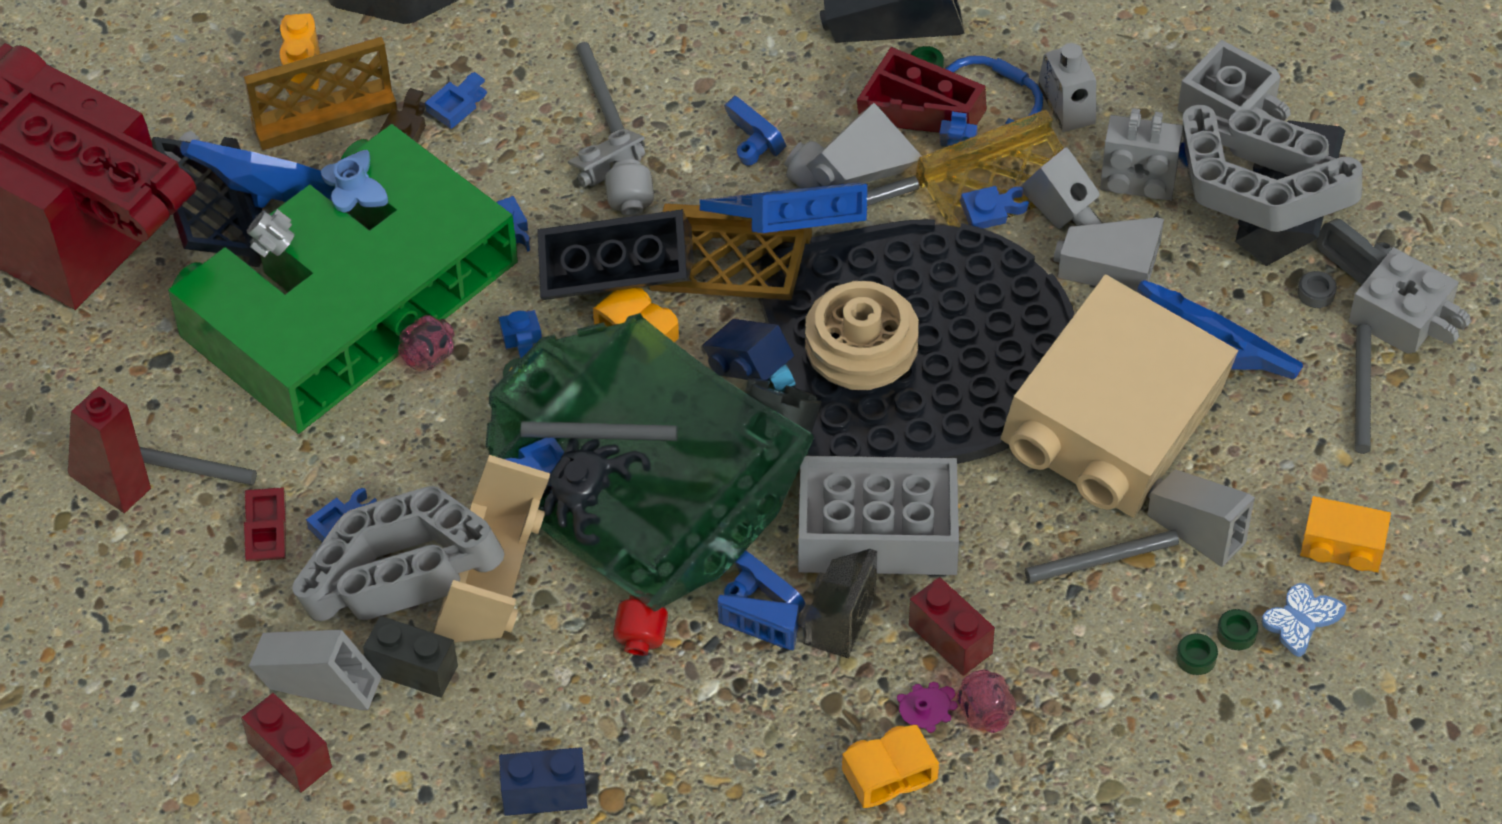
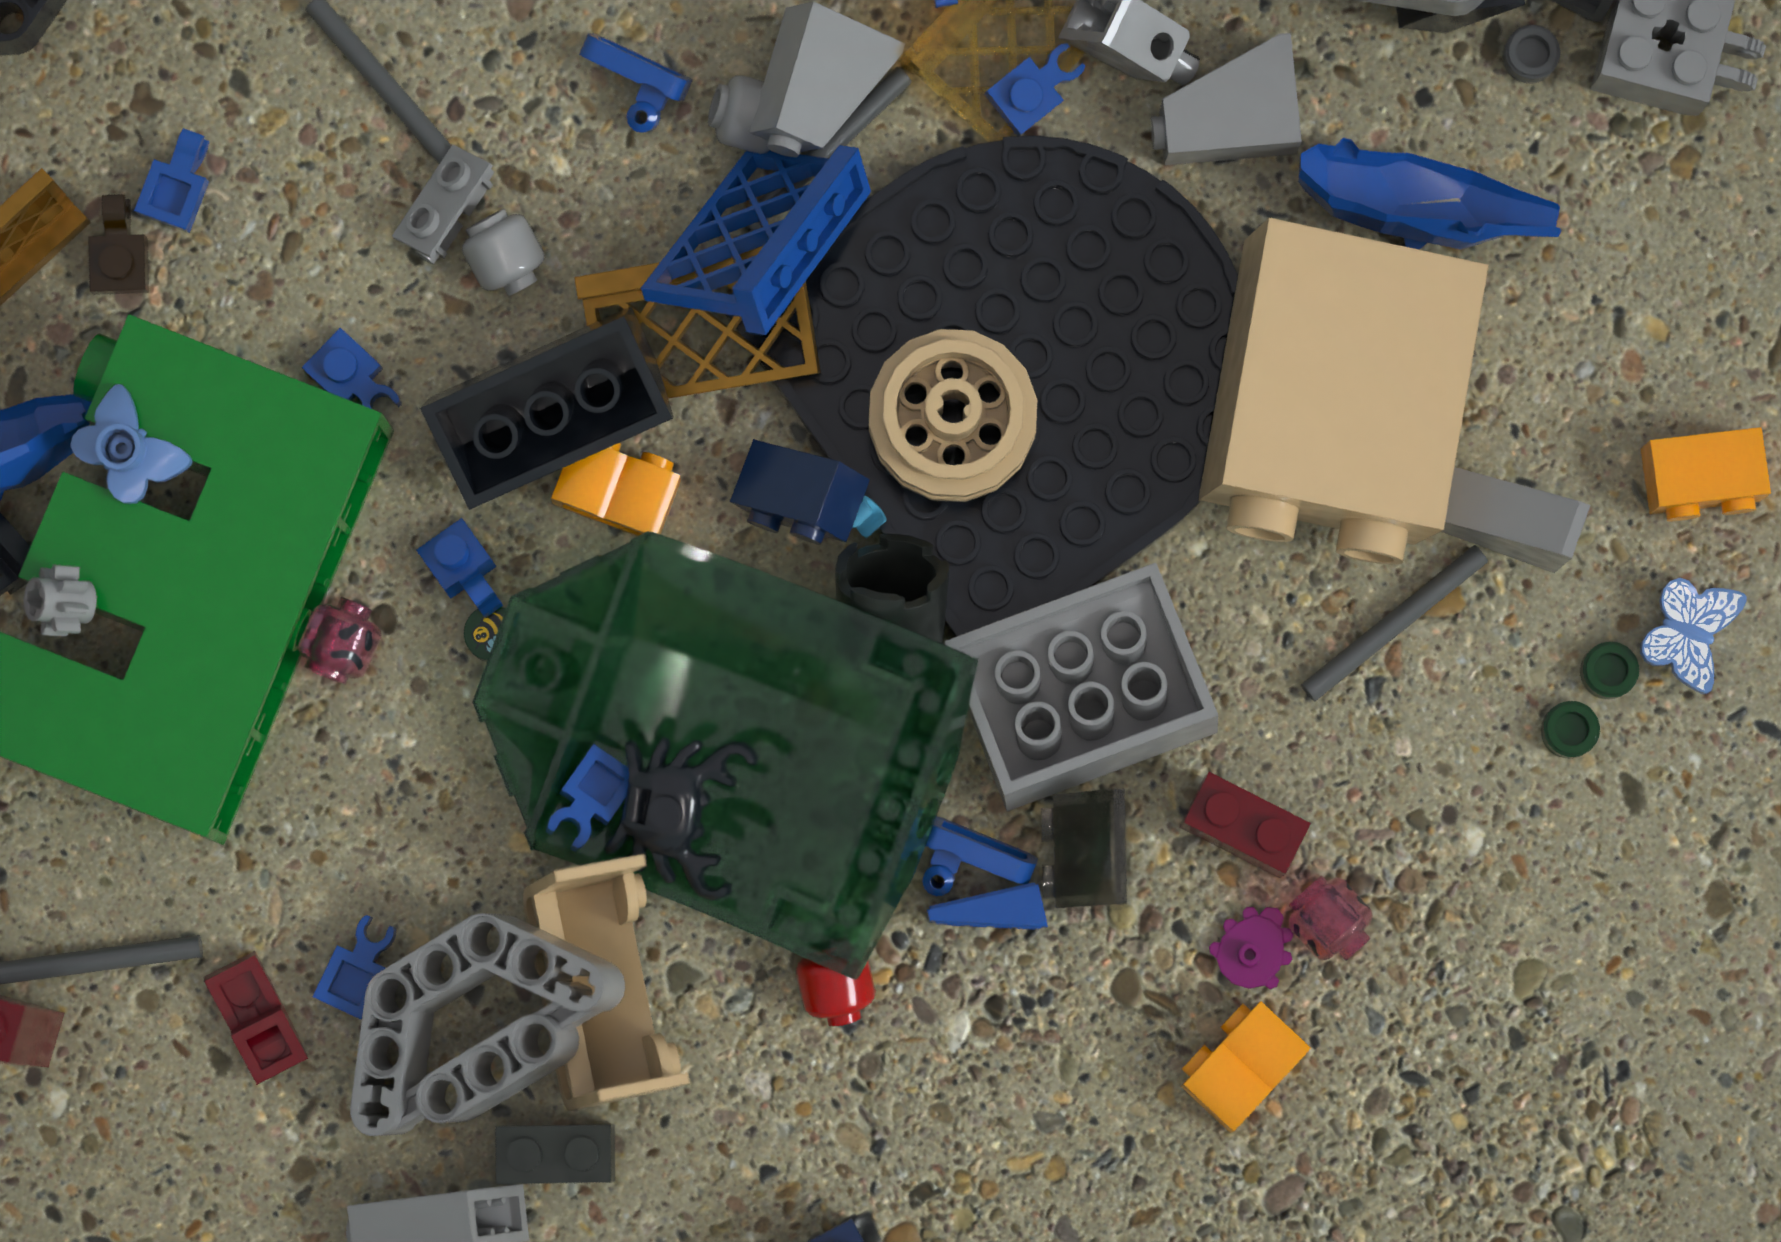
camera: 25 degrees left, 30 degrees up
(599, 431) = (665, 731): dark grey bar -> none
(1363, 389) = (1648, 205): dark grey bar -> none

